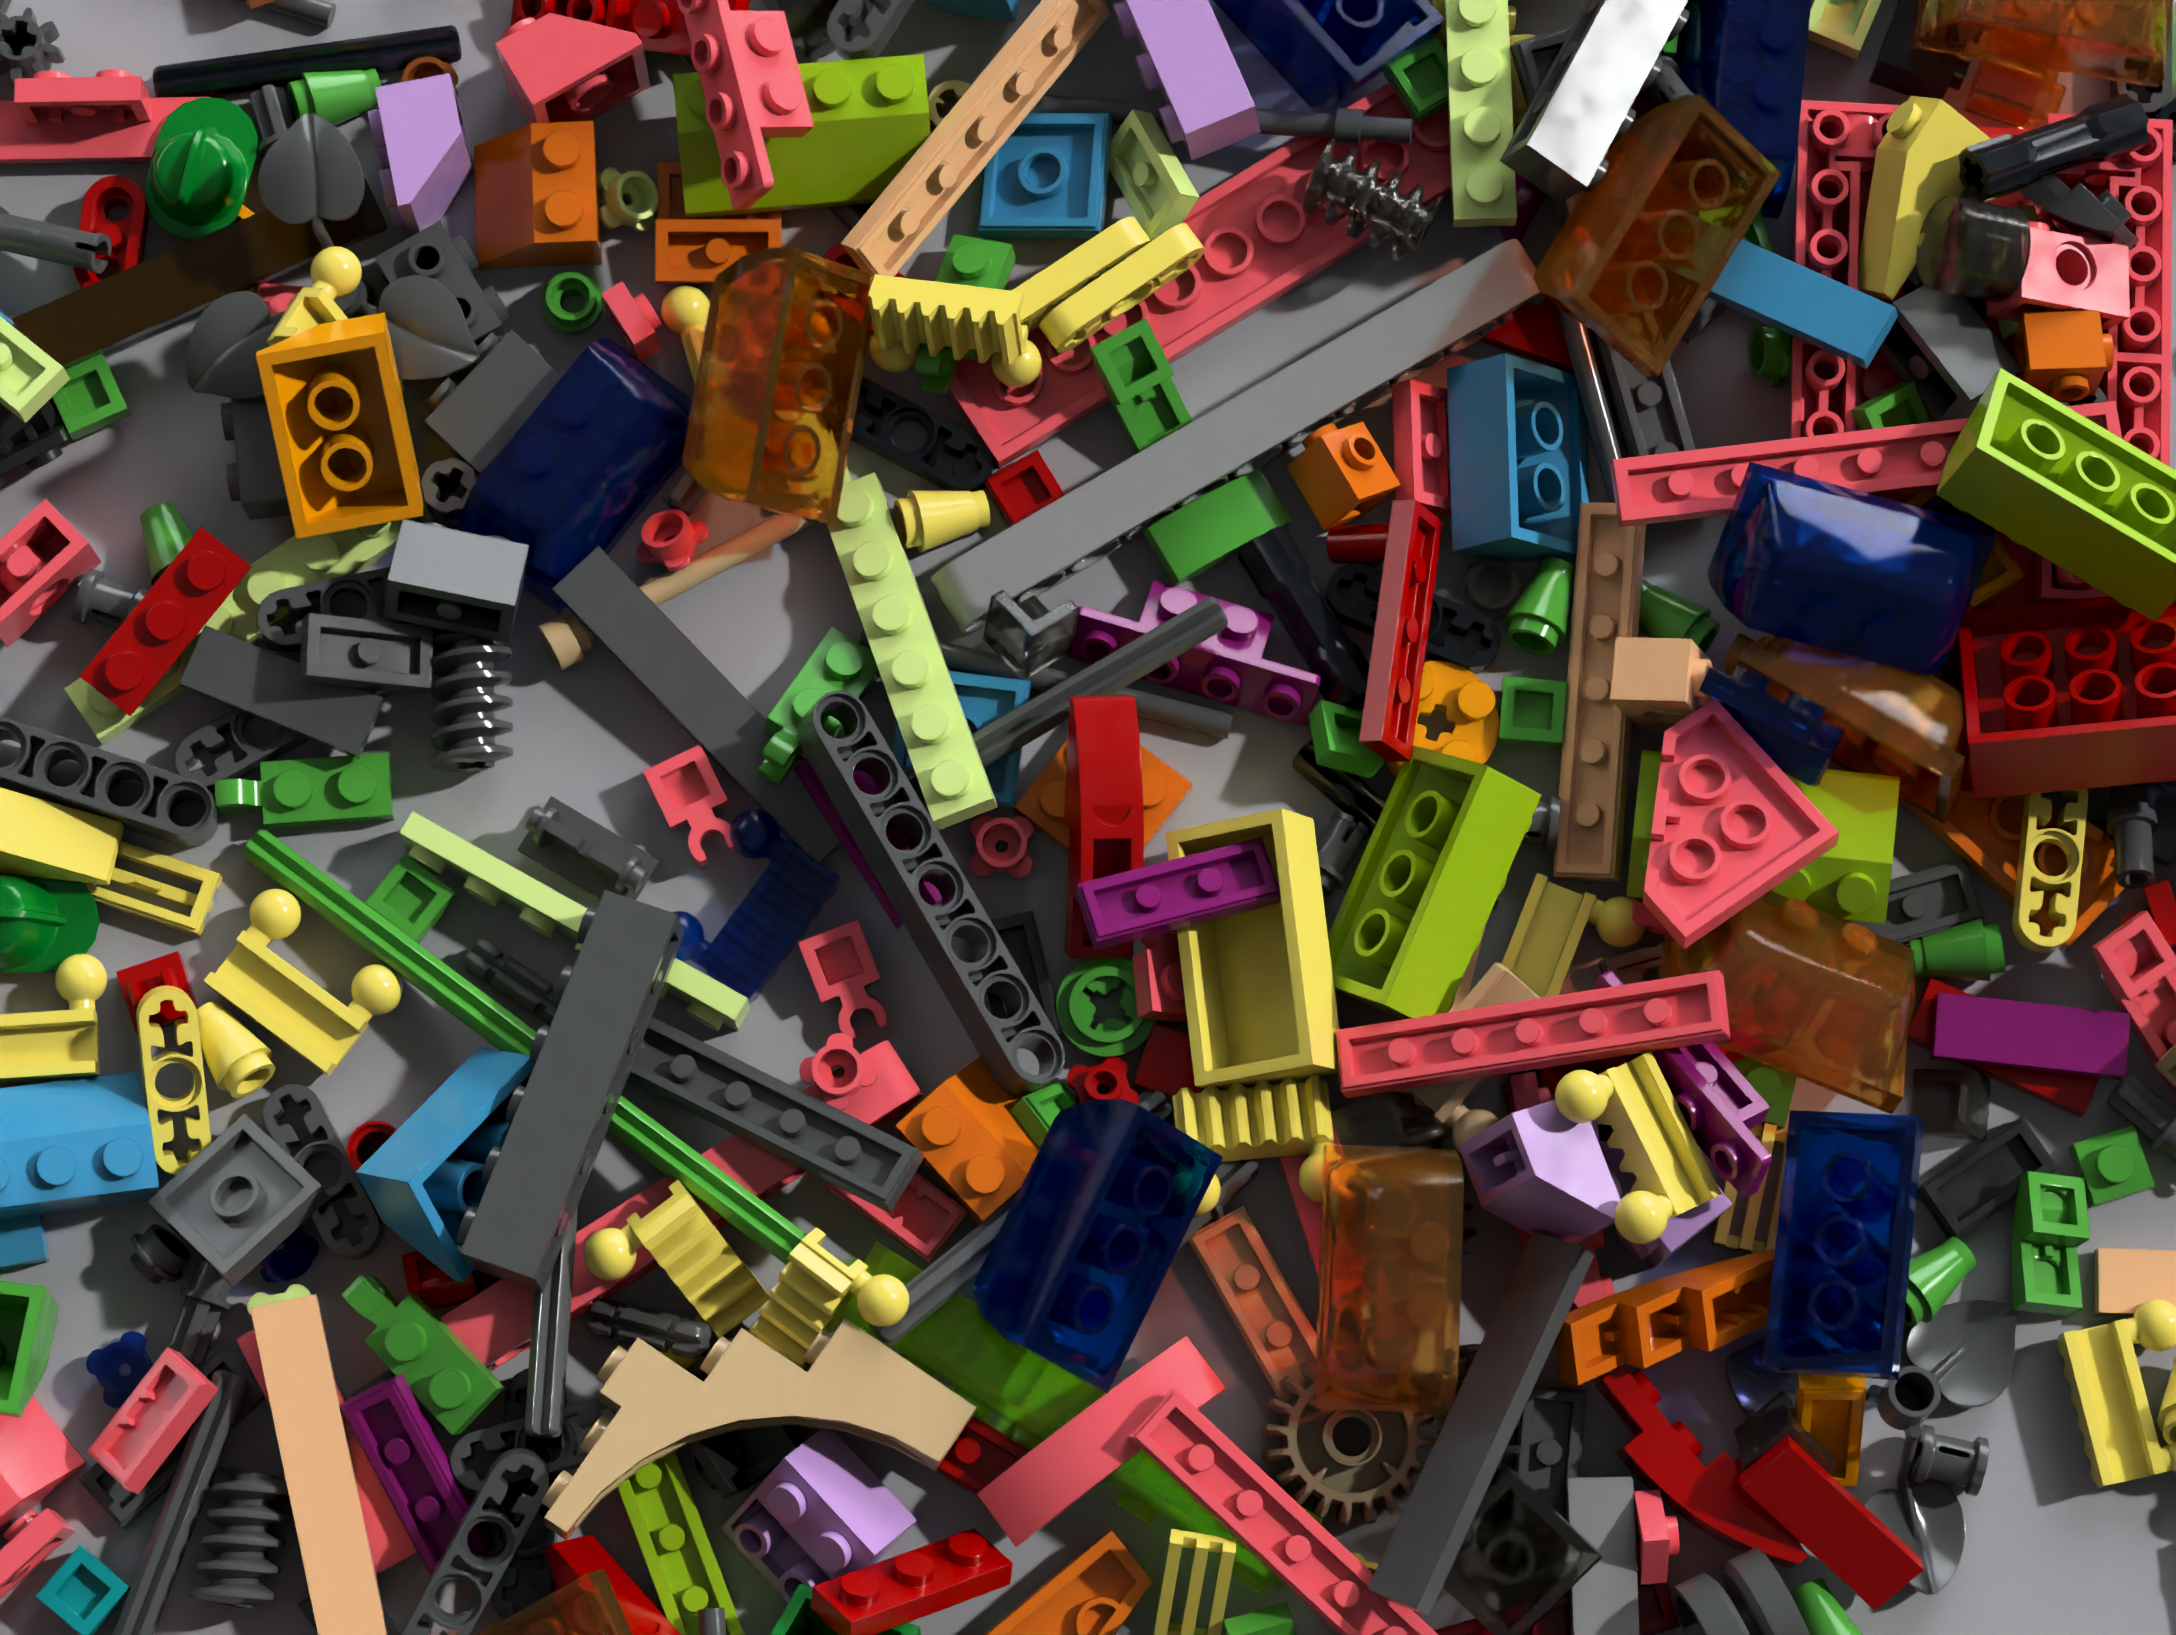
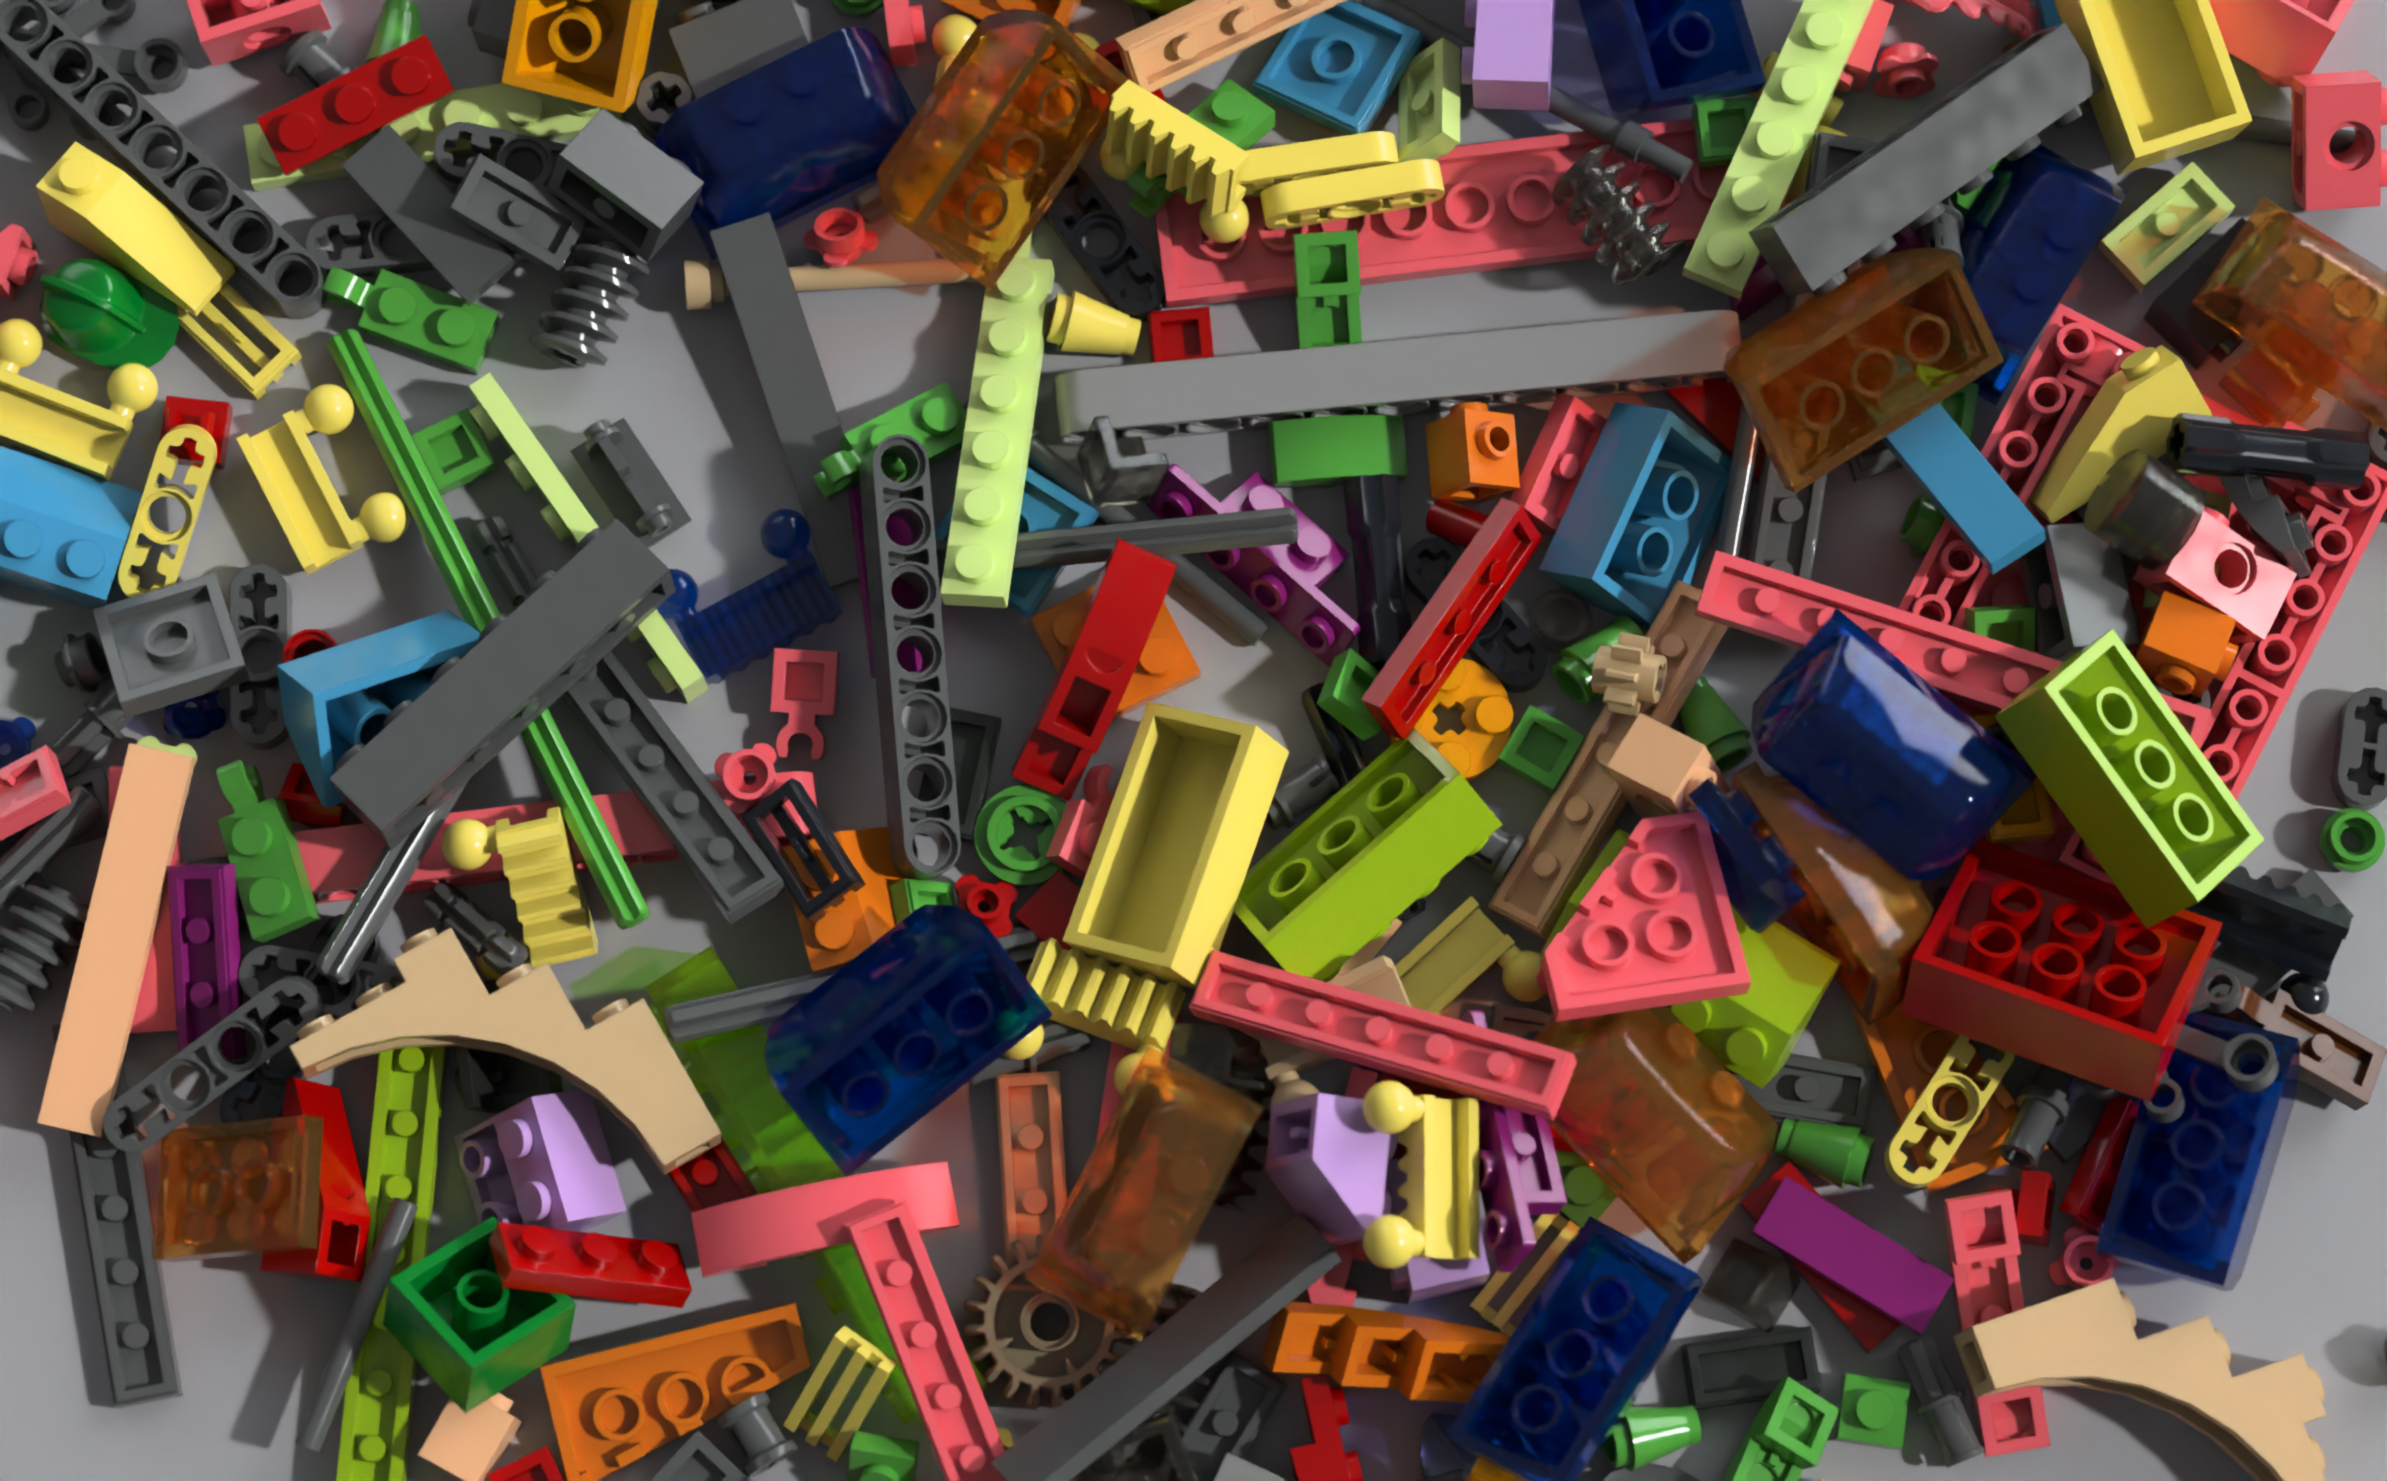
camera: 30 degrees right, 0 degrees up
(233, 1052) = (232, 513): light yellow cone -> none
(689, 796) = (744, 472): coral plate -> none
(814, 1295) = (631, 967): light yellow gear -> none
(920, 1219) = (762, 941): coral plate -> none
(969, 1140) = (832, 892): none -> black tile
(991, 831) = (998, 630): coral plate -> none
(1178, 893) = (1128, 760): magenta tile -> none
(1584, 607) = (1629, 674): none -> tan gear

